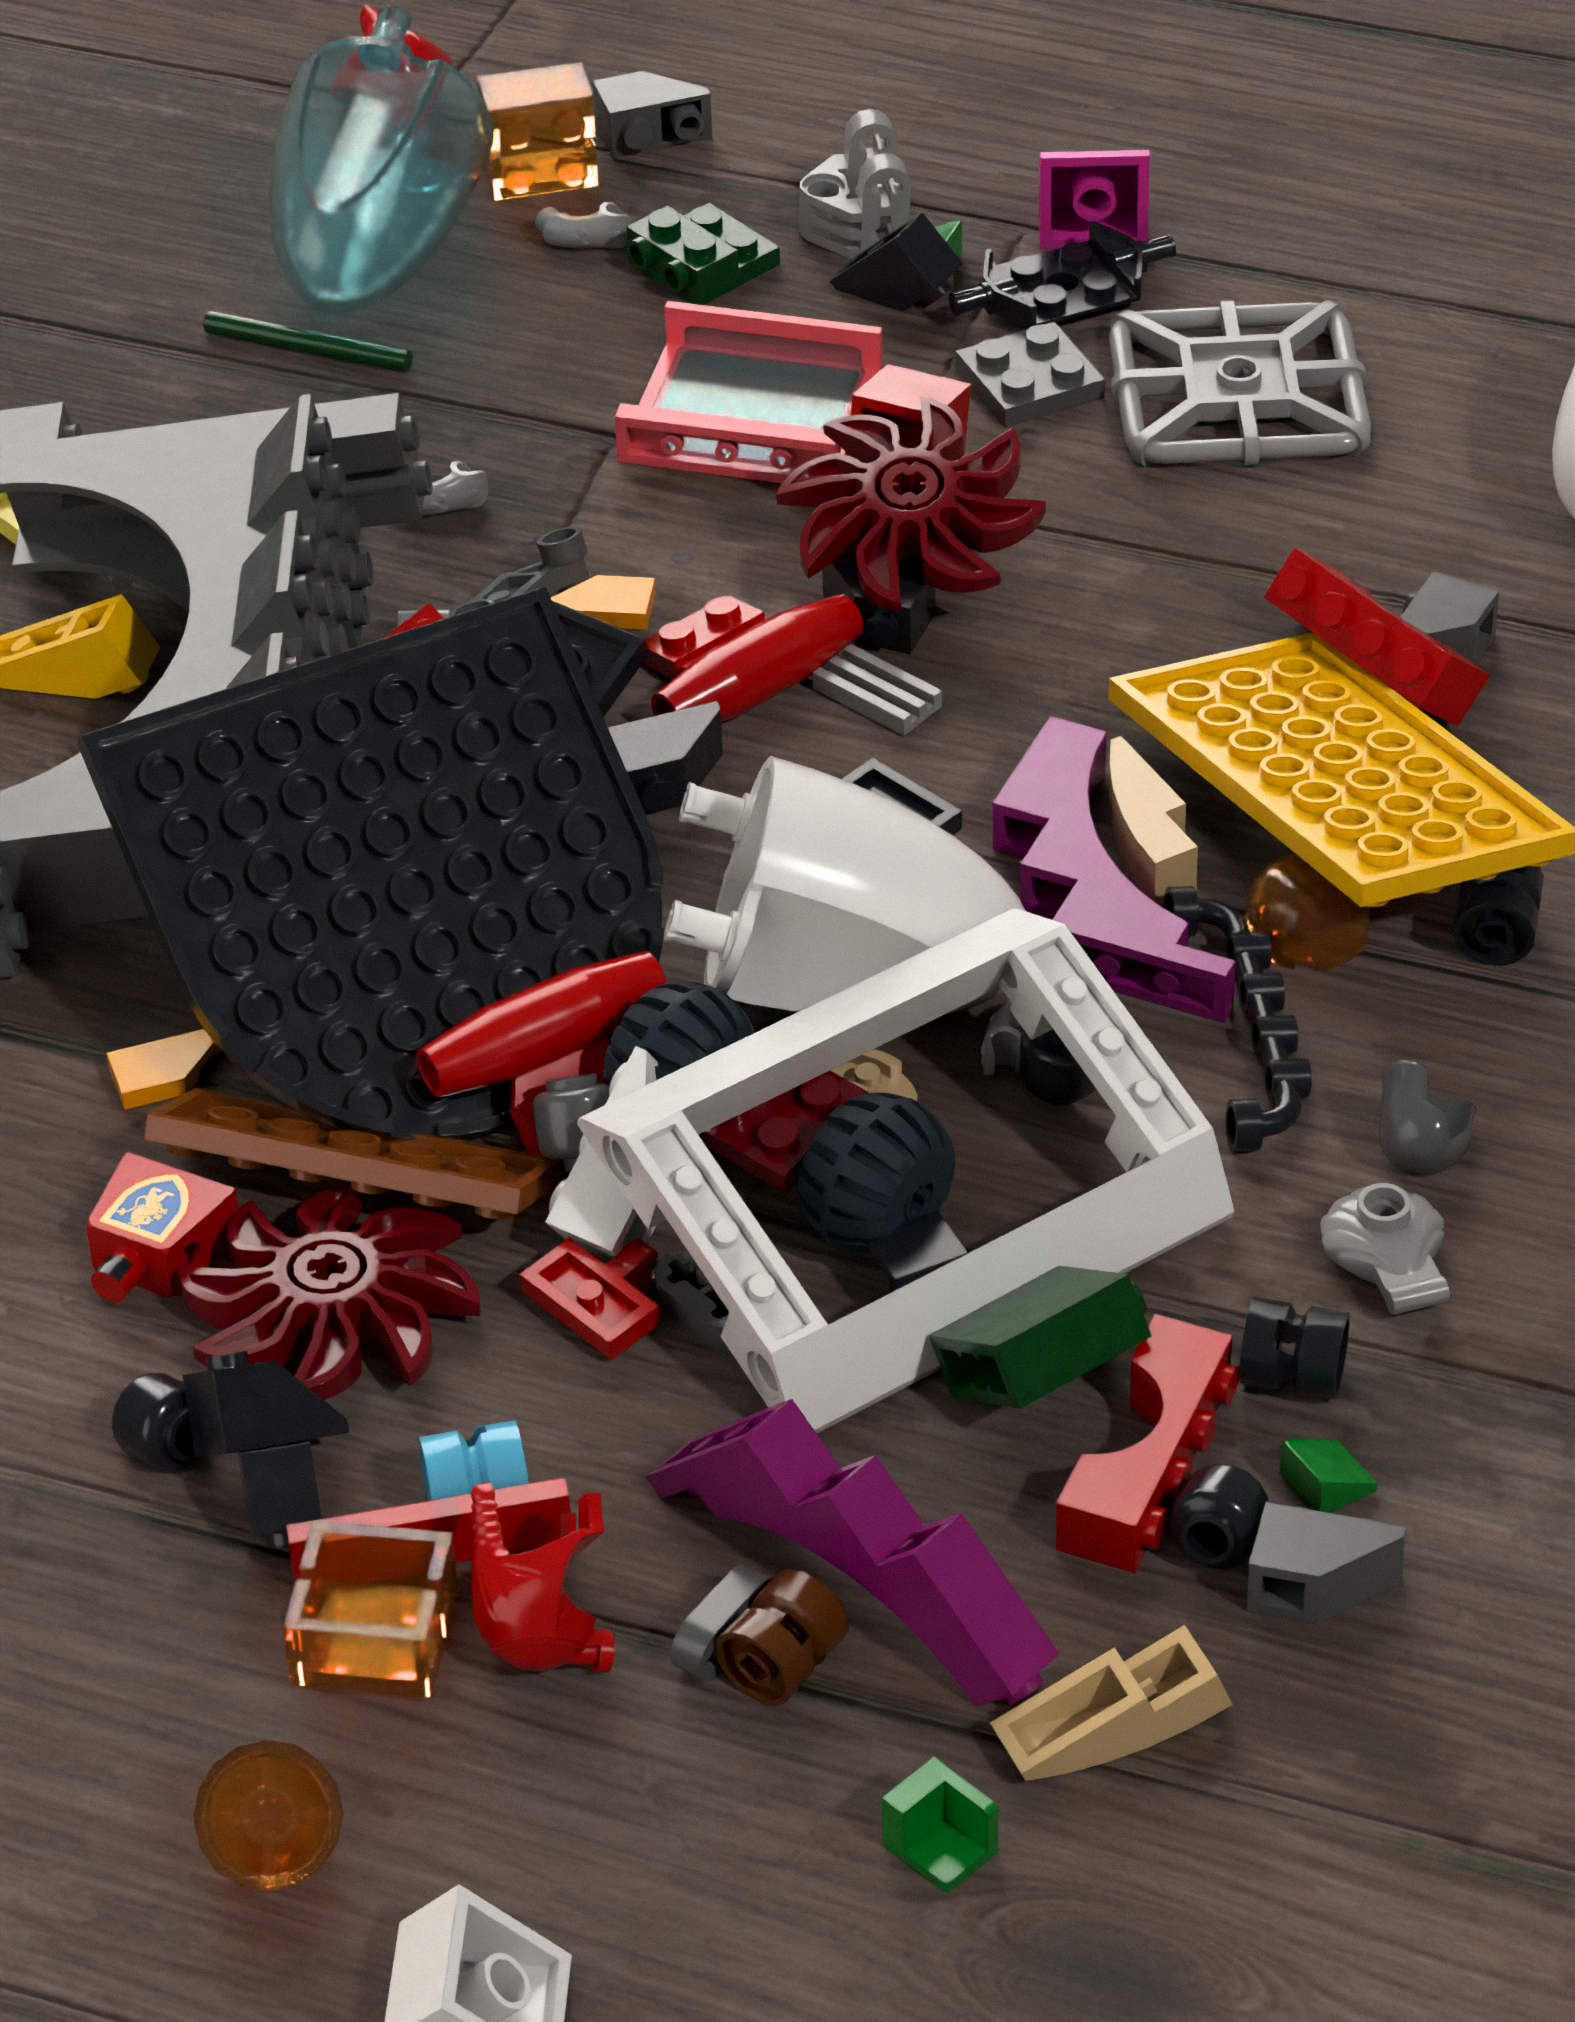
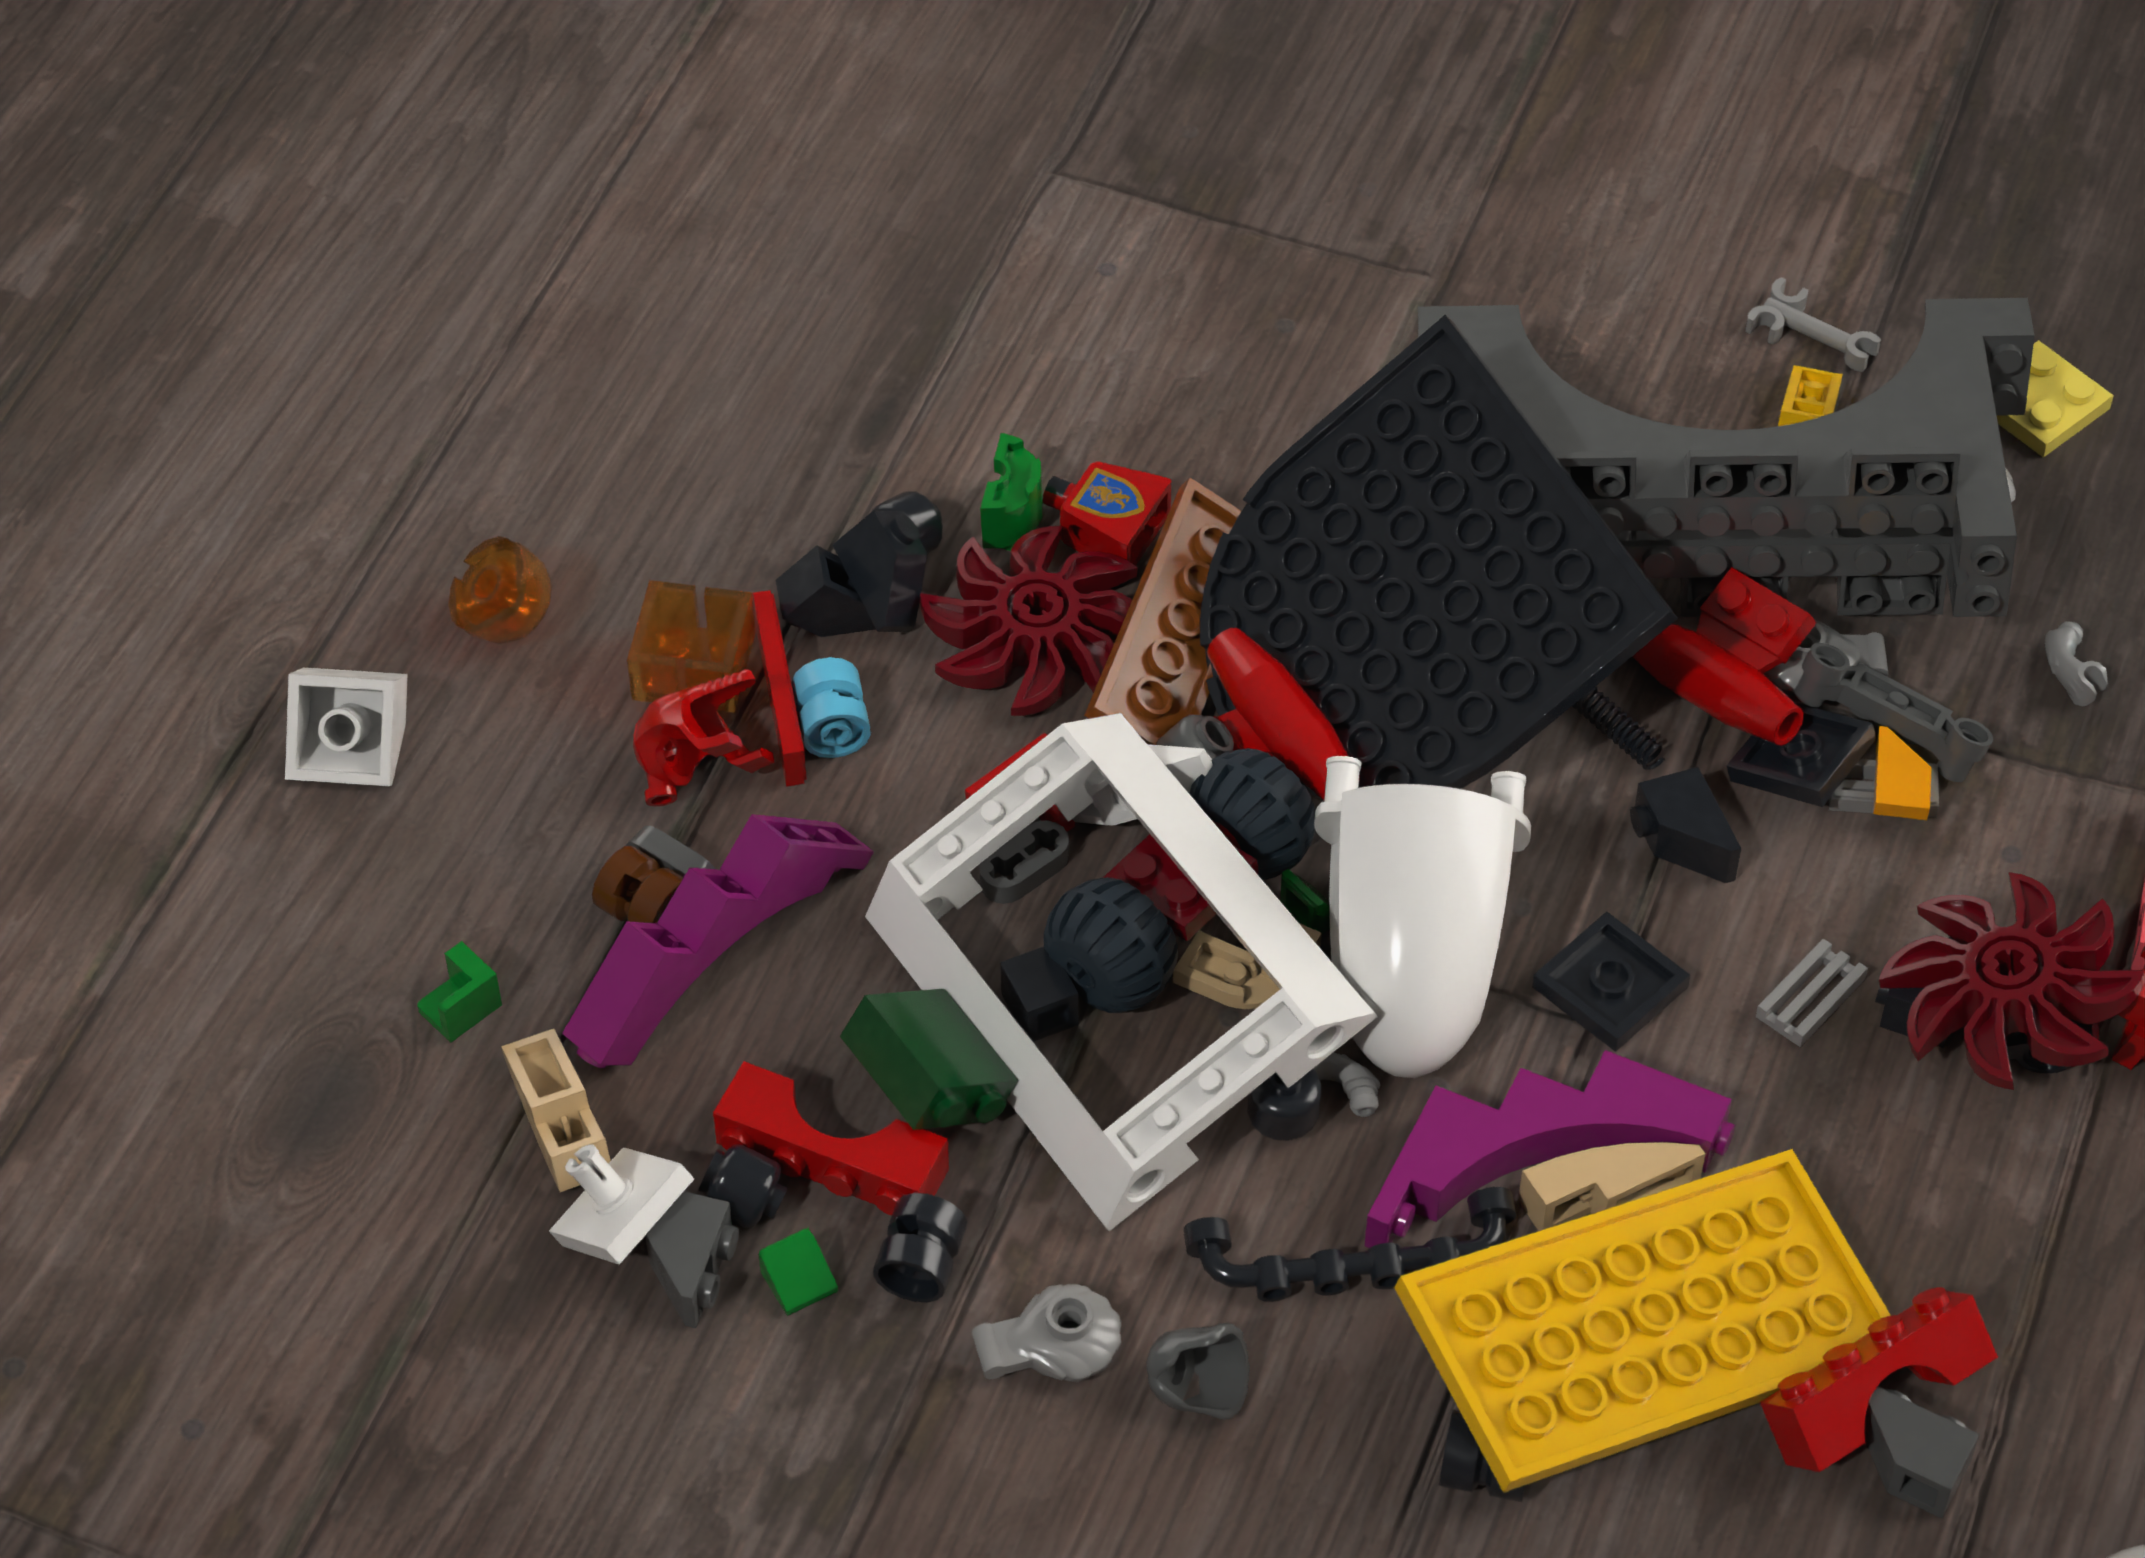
camera: 90 degrees right, 10 degrees up
(118, 1301) = (1015, 500): none -> green cylinder
(742, 657) = (1839, 881): red plate -> none
(1275, 1609) = (618, 1201): none -> white tile

